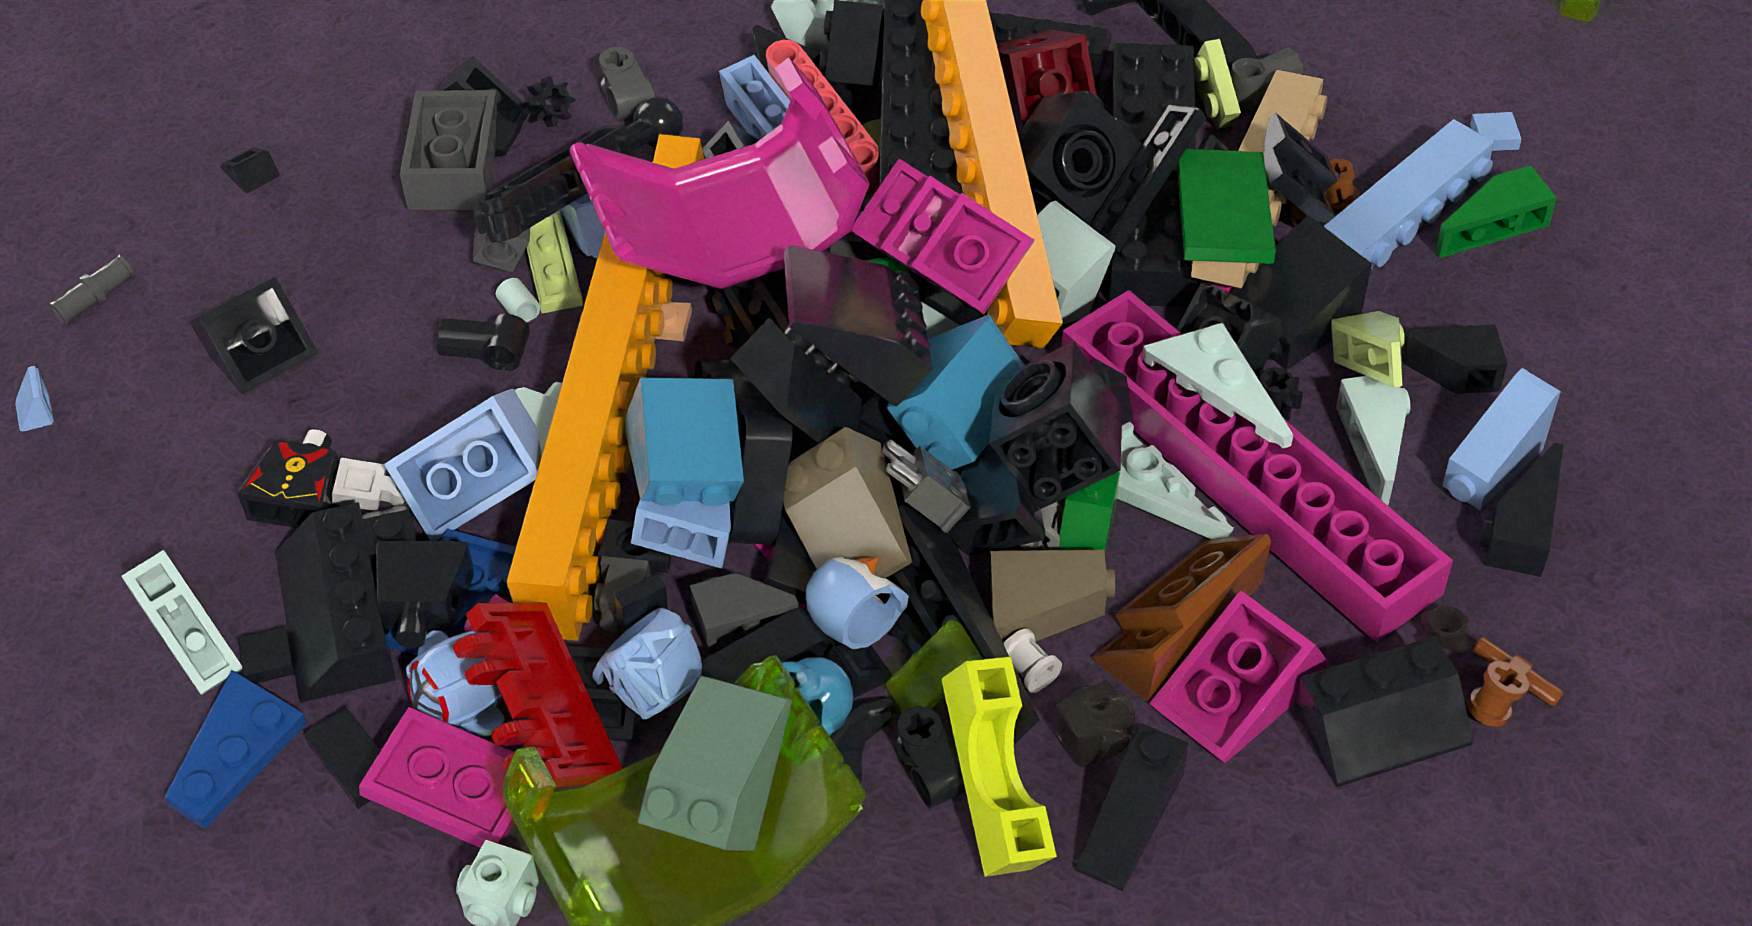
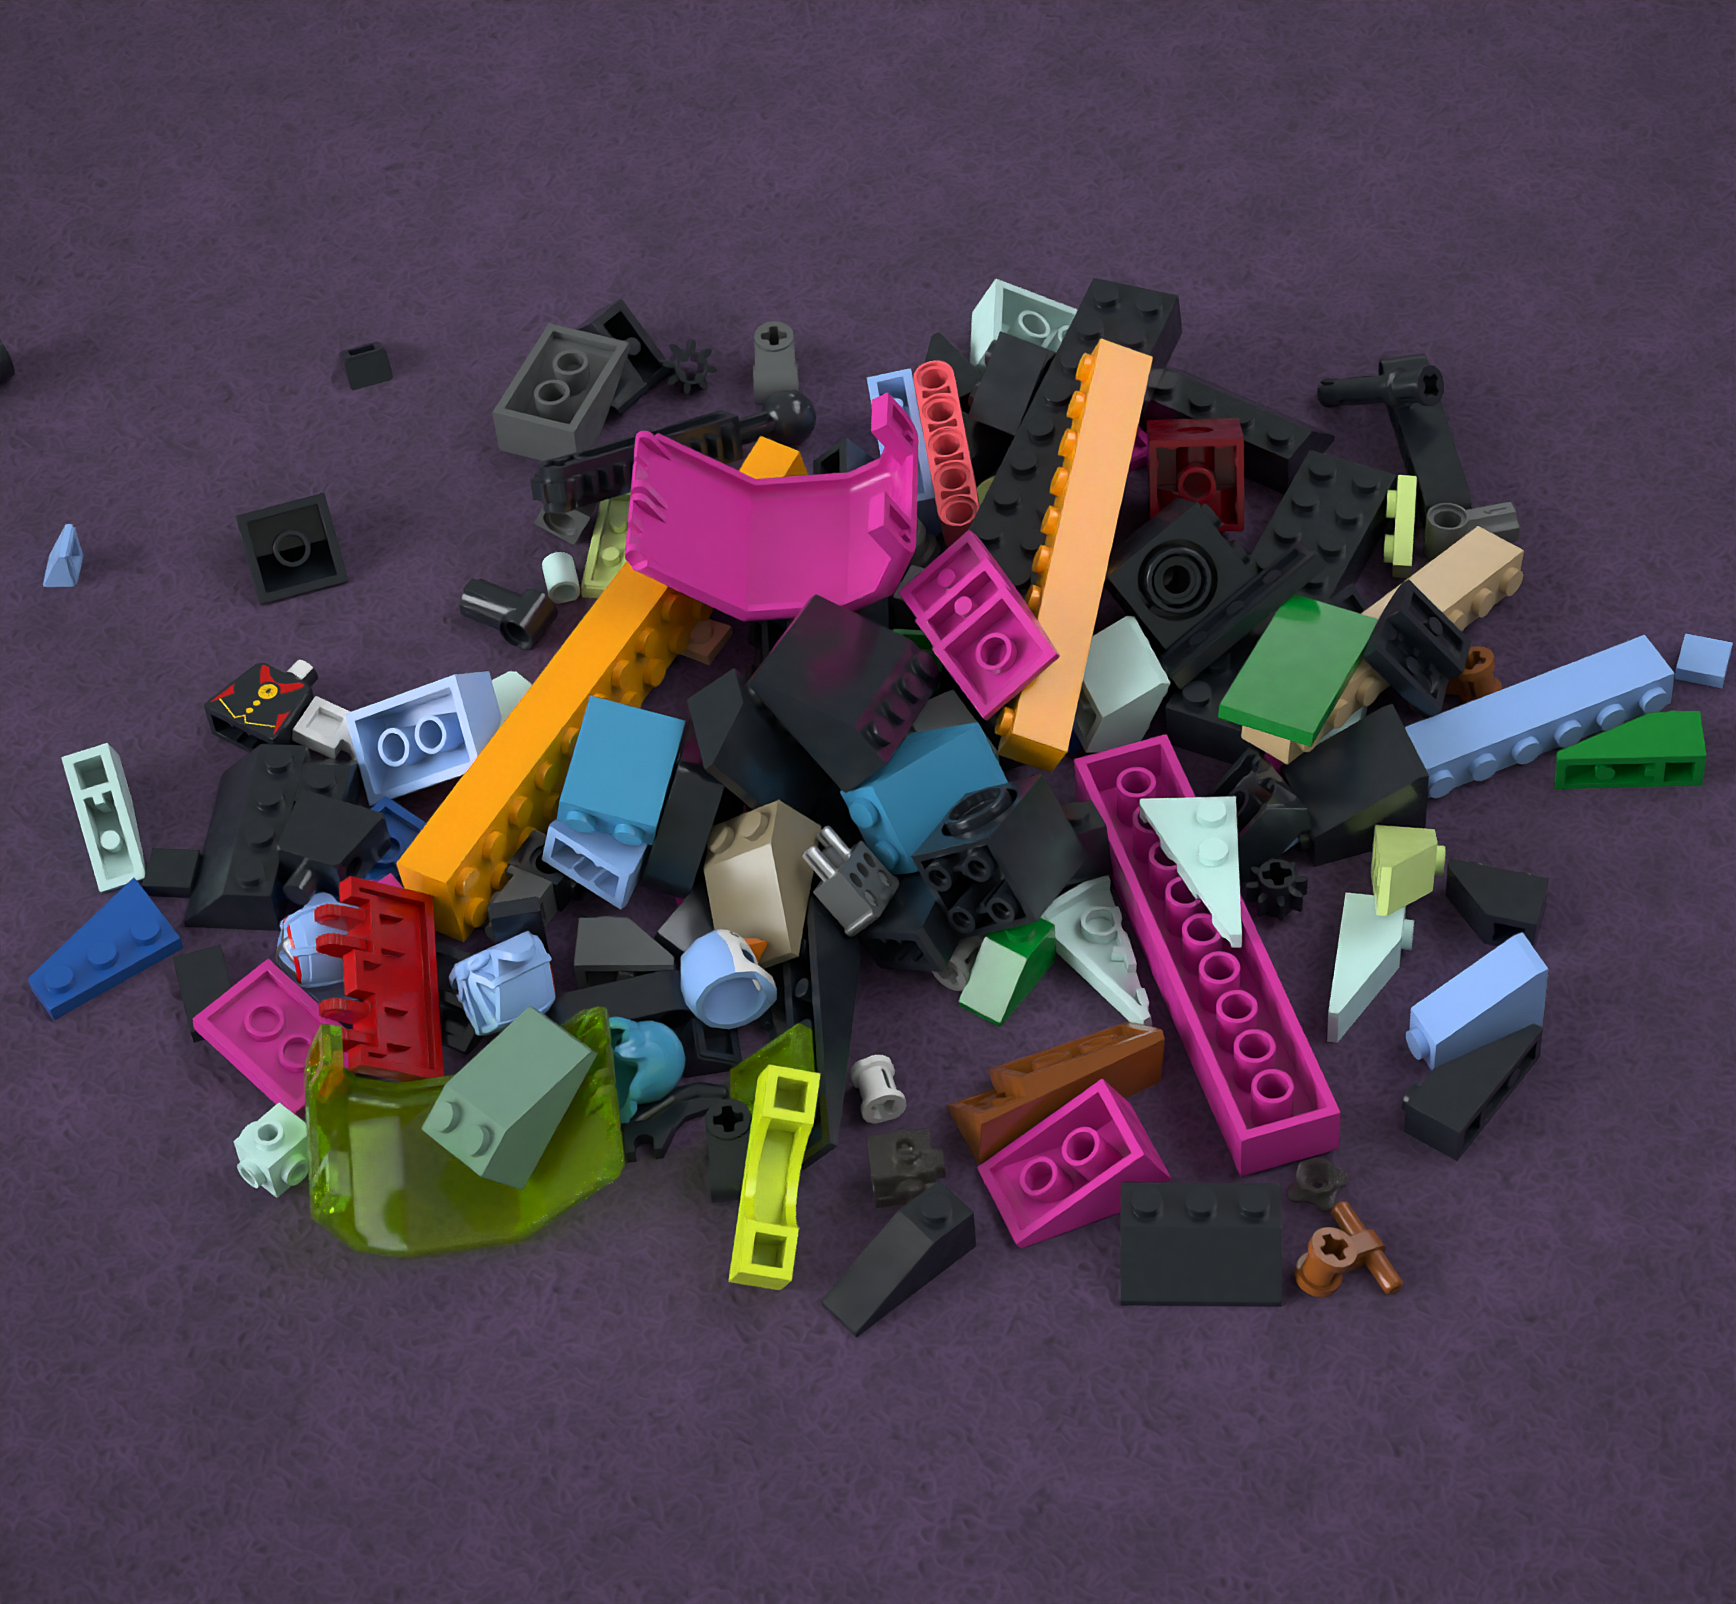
camera: 25 degrees right, 0 degrees up
(91, 289) = (161, 456): dark grey pin -> none
(1047, 590) = (927, 1025): dark tan slope -> none

